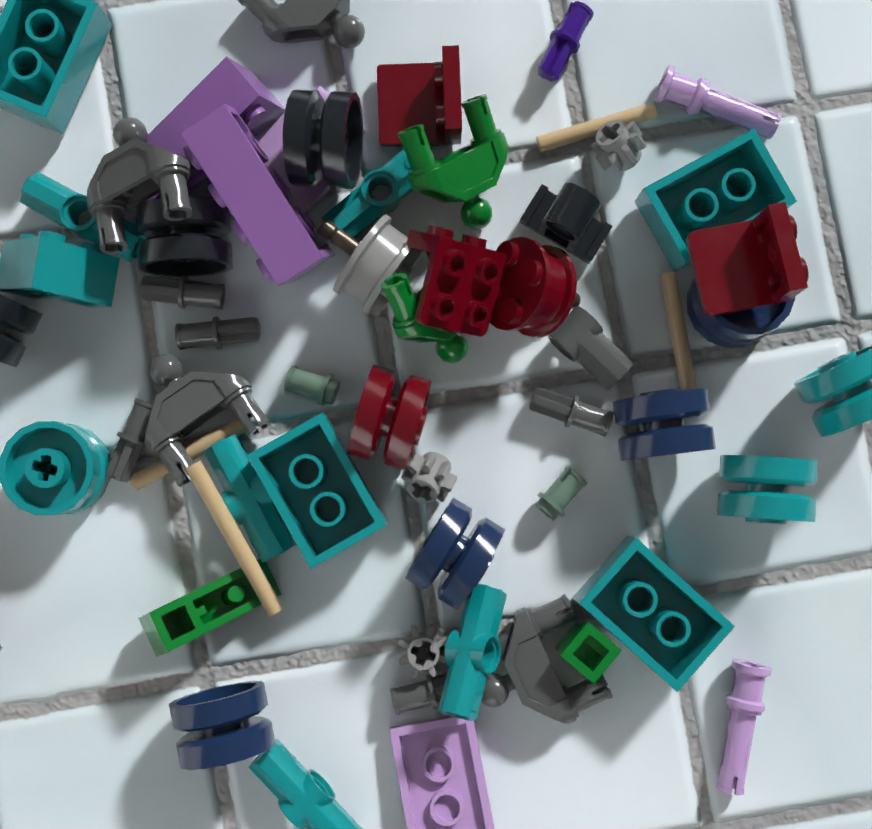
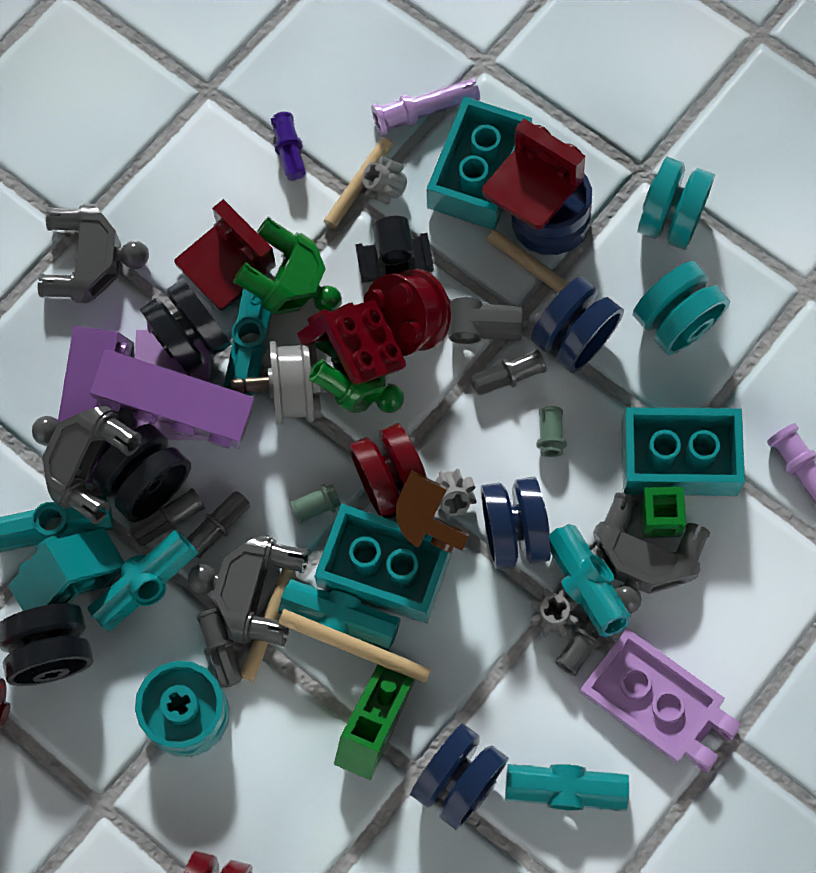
camera: 35 degrees left, 15 degrees down
(113, 332) = (142, 580): none -> teal piece
(369, 490) = (416, 514): none -> reddish brown brick

